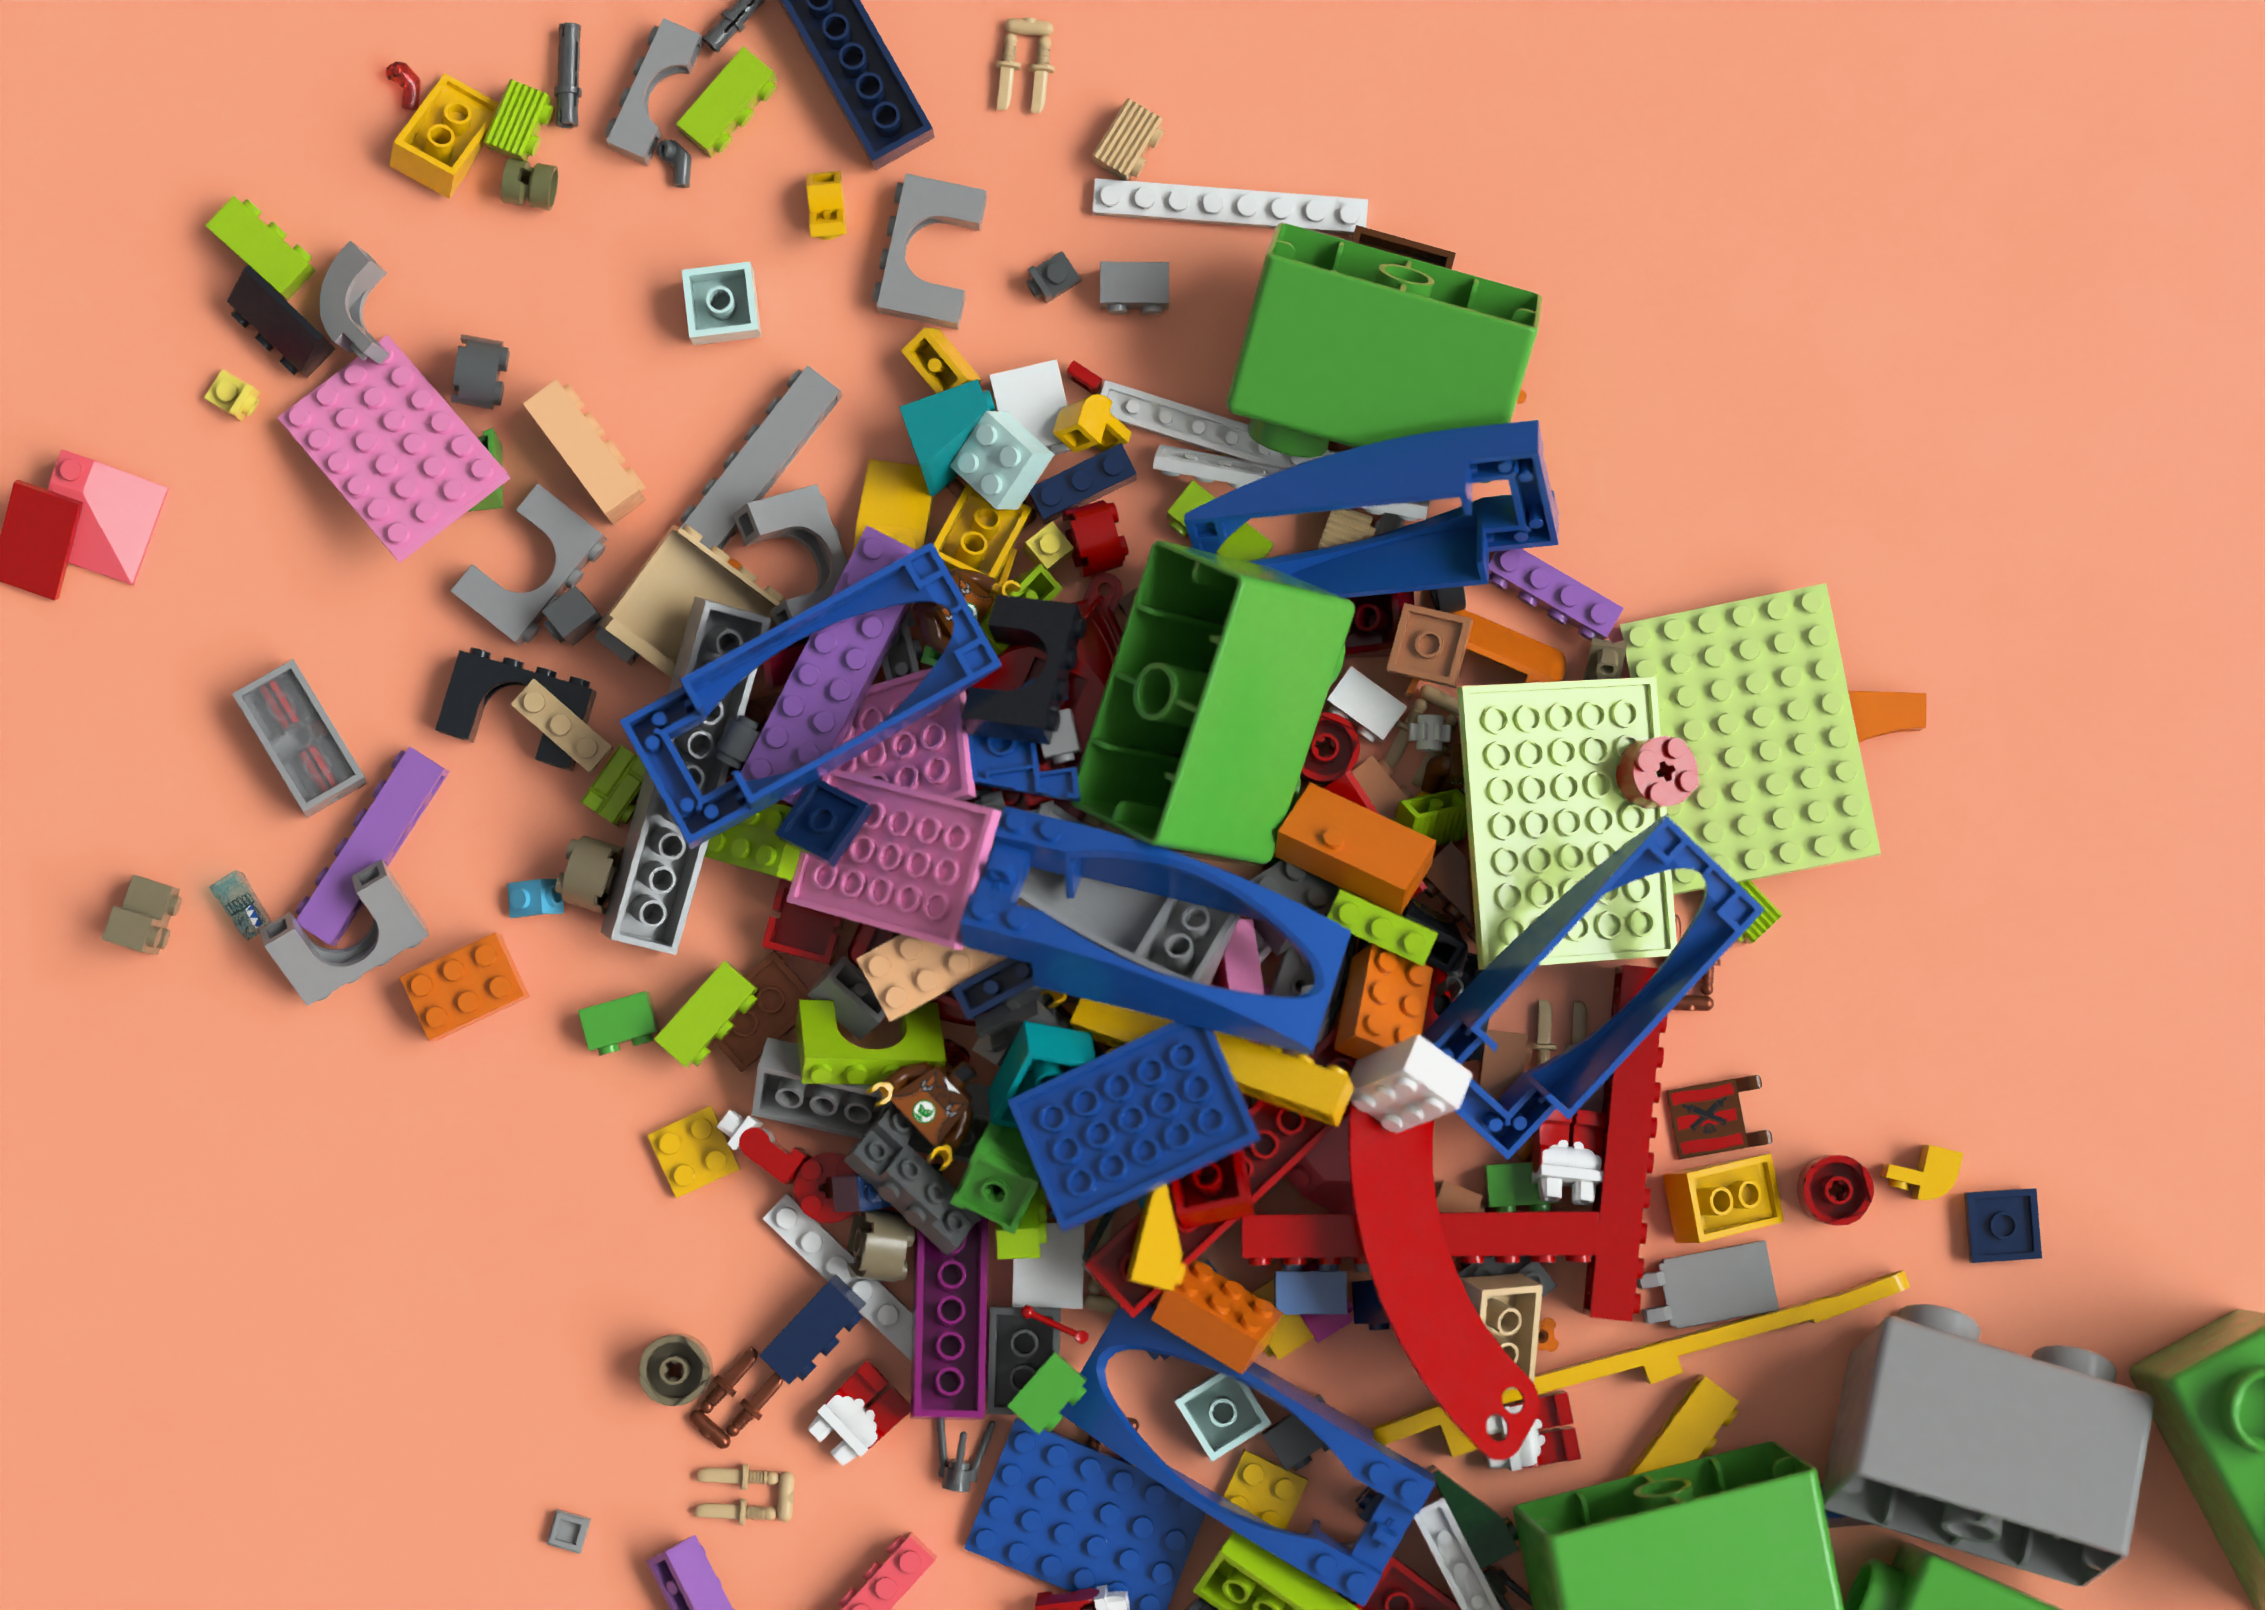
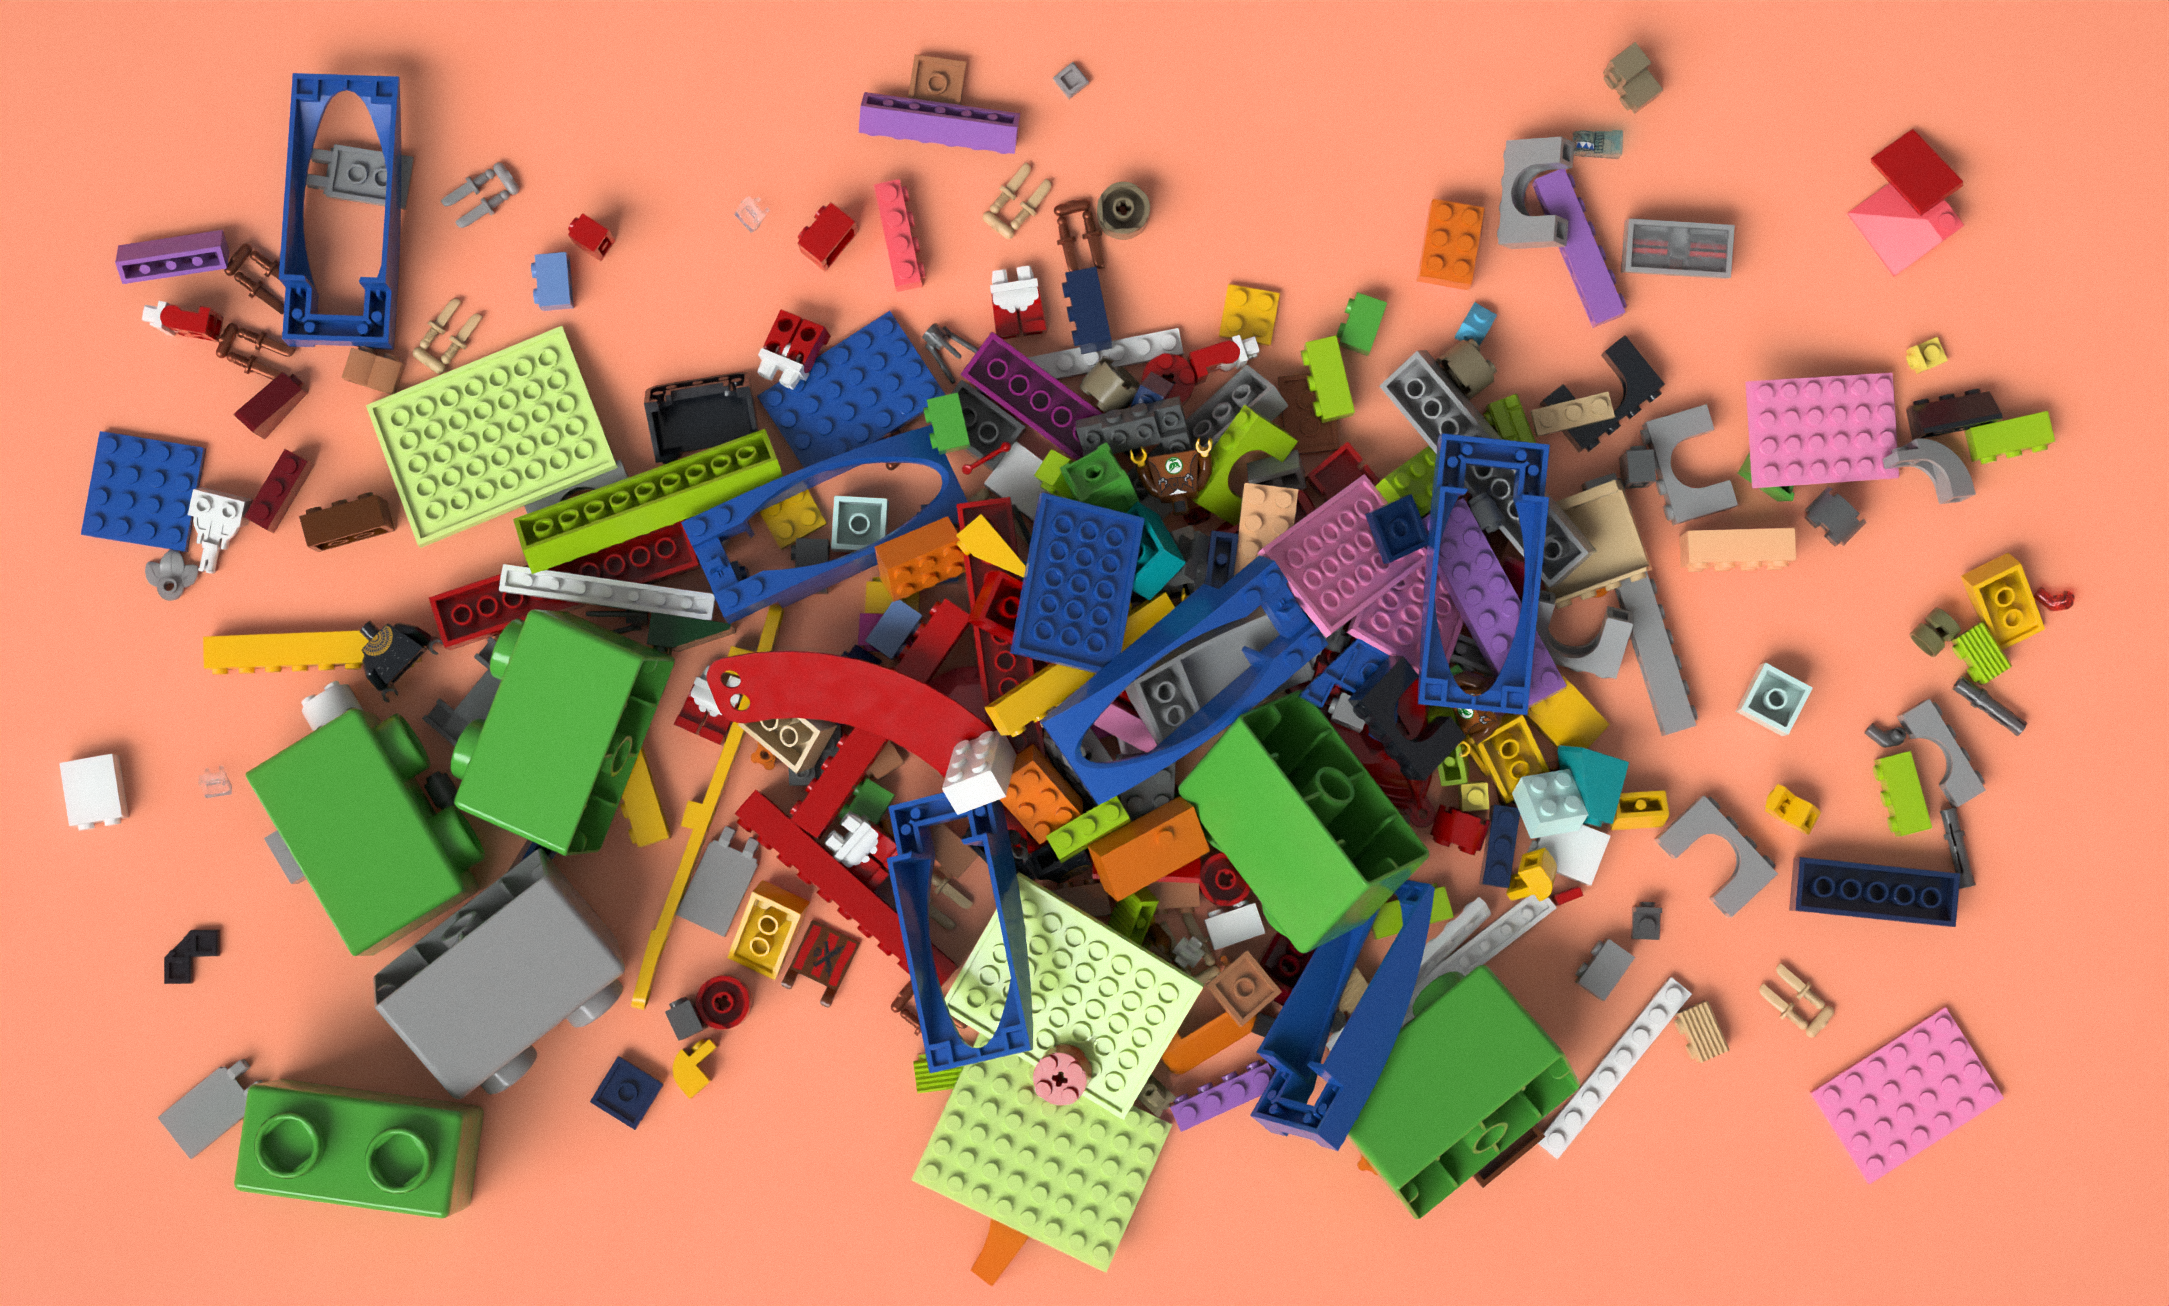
camera: 125 degrees right, 0 degrees up
(1884, 1219) = (685, 1018): none -> dark grey brick

